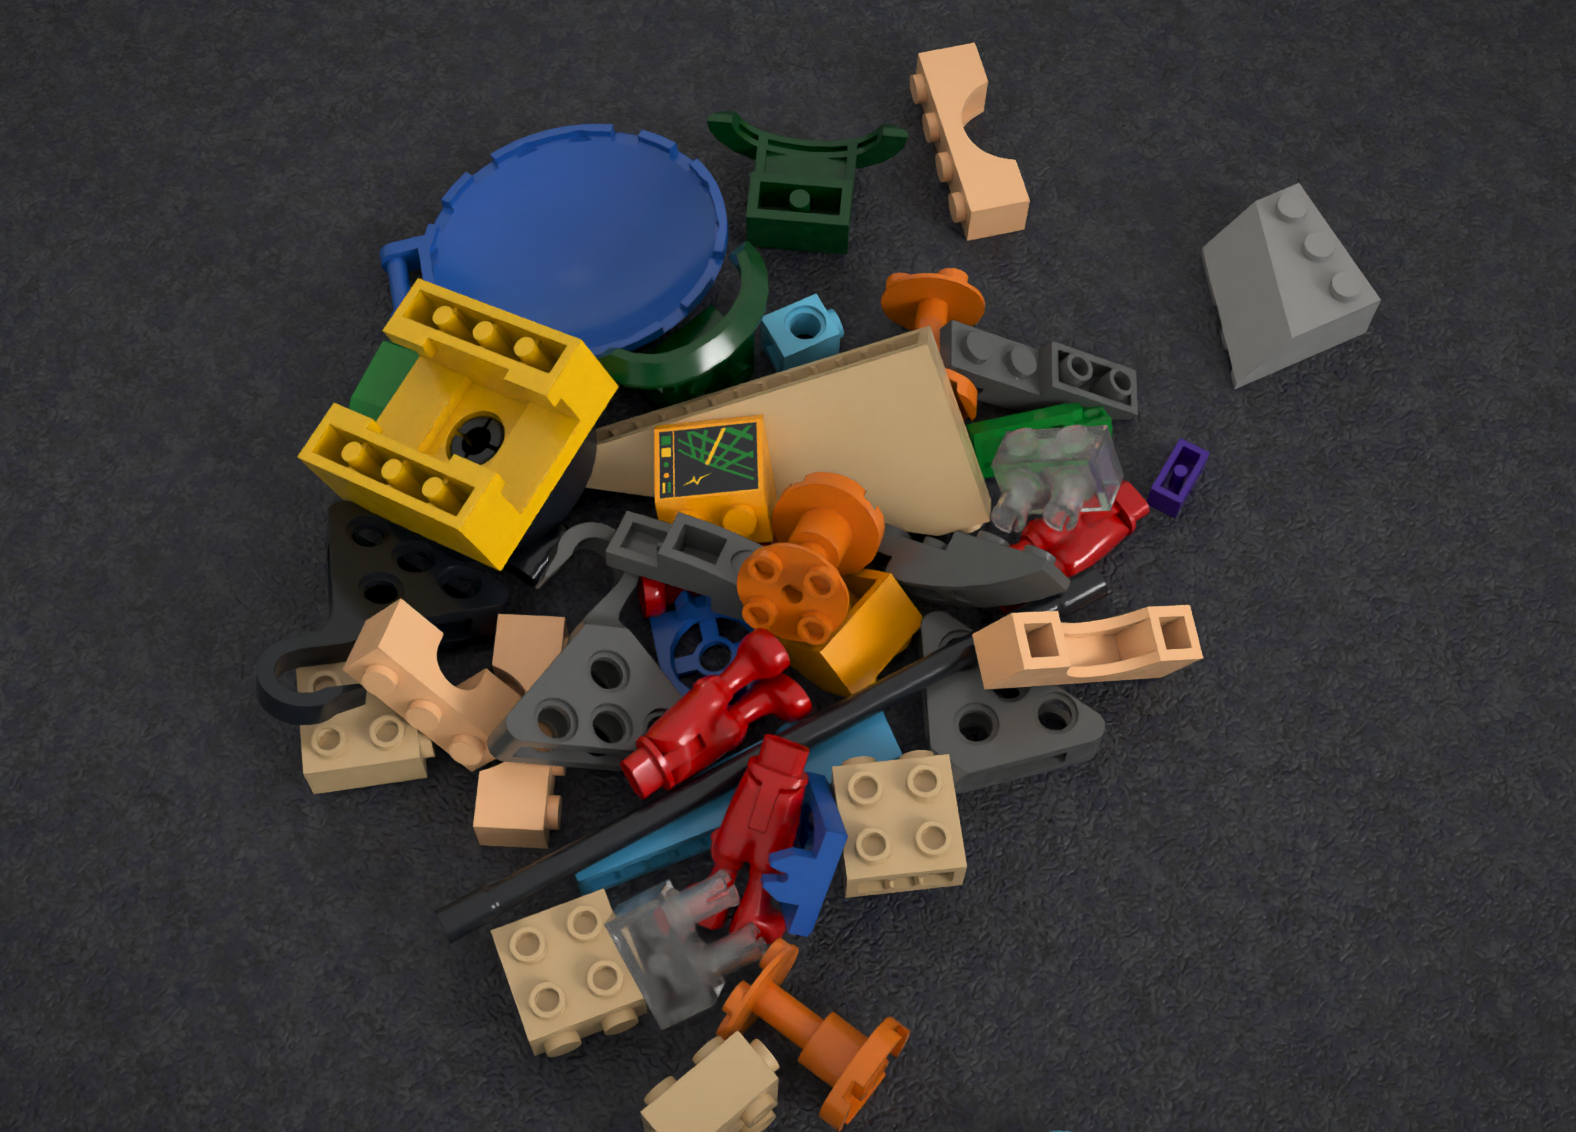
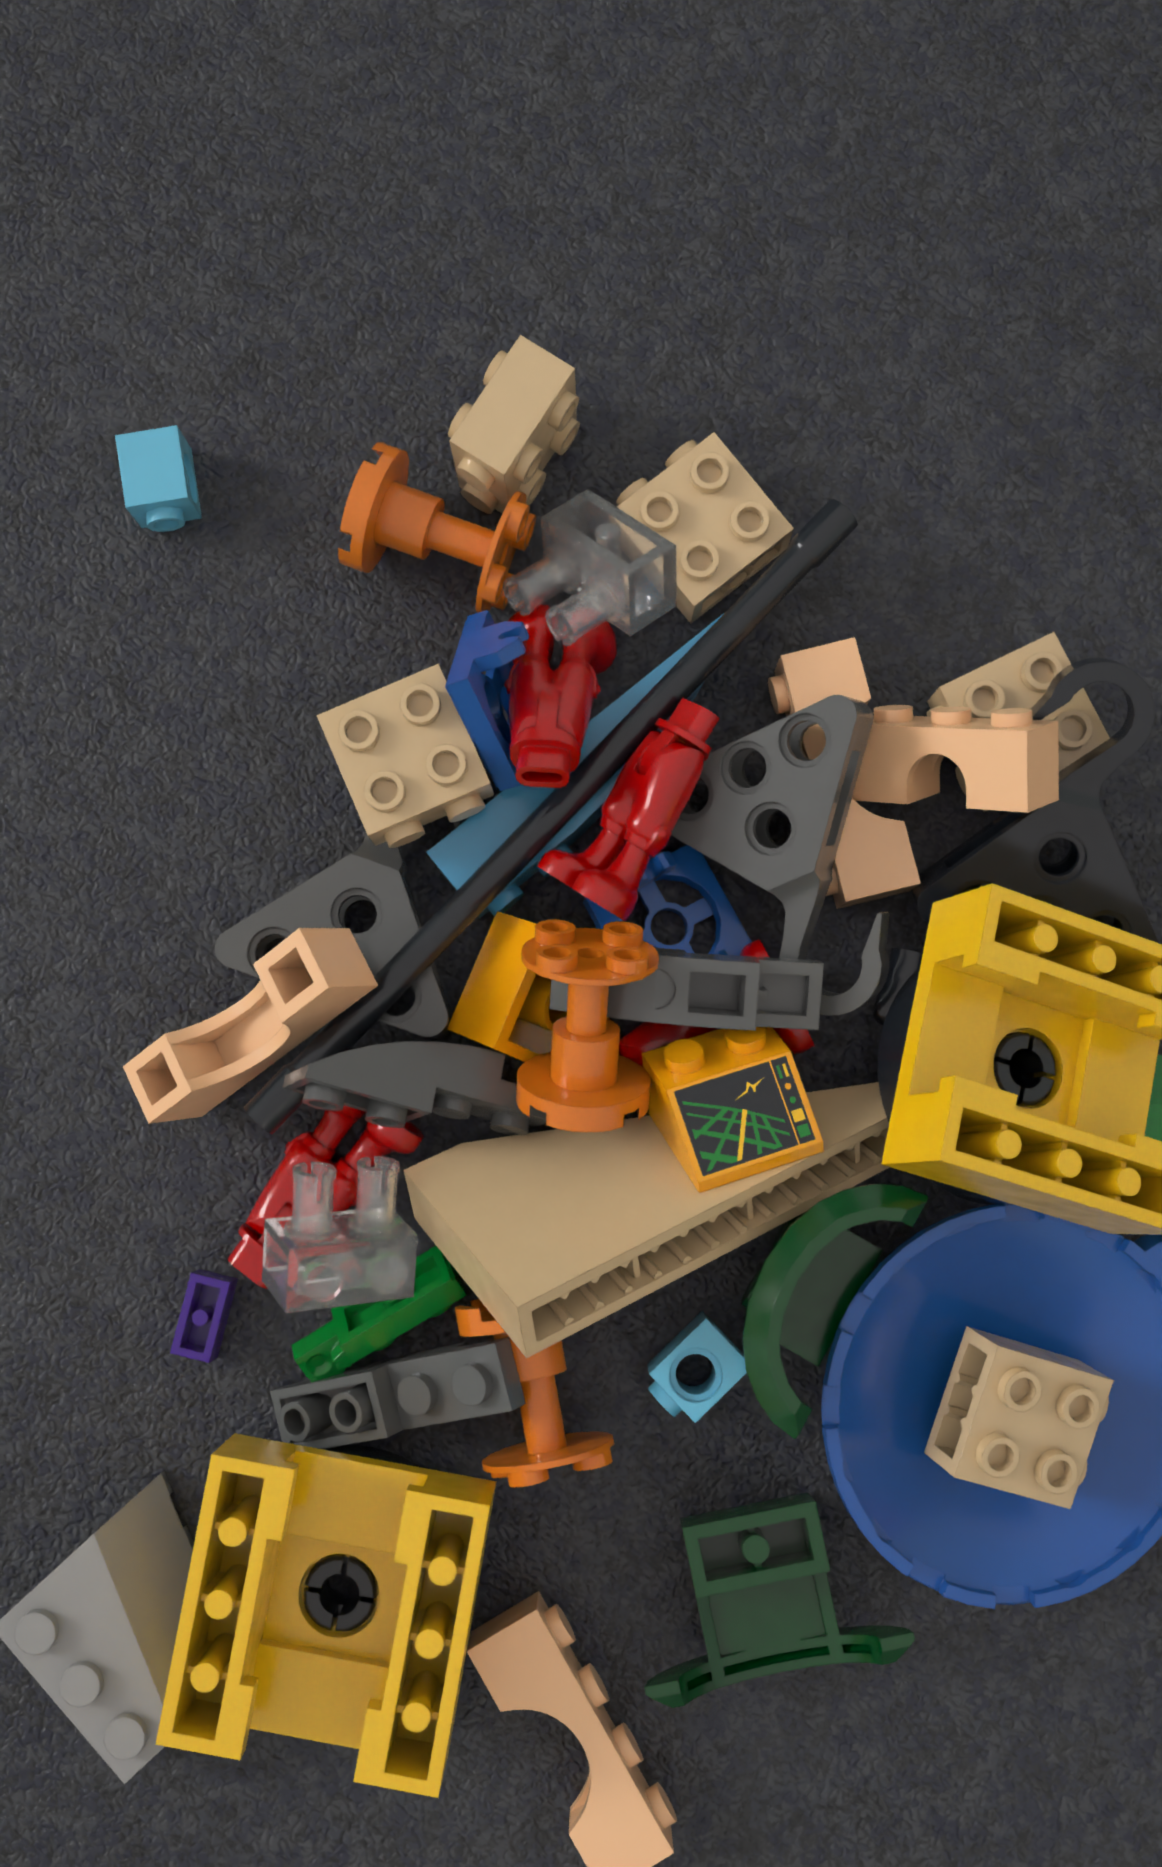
camera: 170 degrees right, 20 degrees up
(577, 232) = (1018, 1418): none -> tan brick
(1102, 211) = (284, 1654): none -> yellow piece

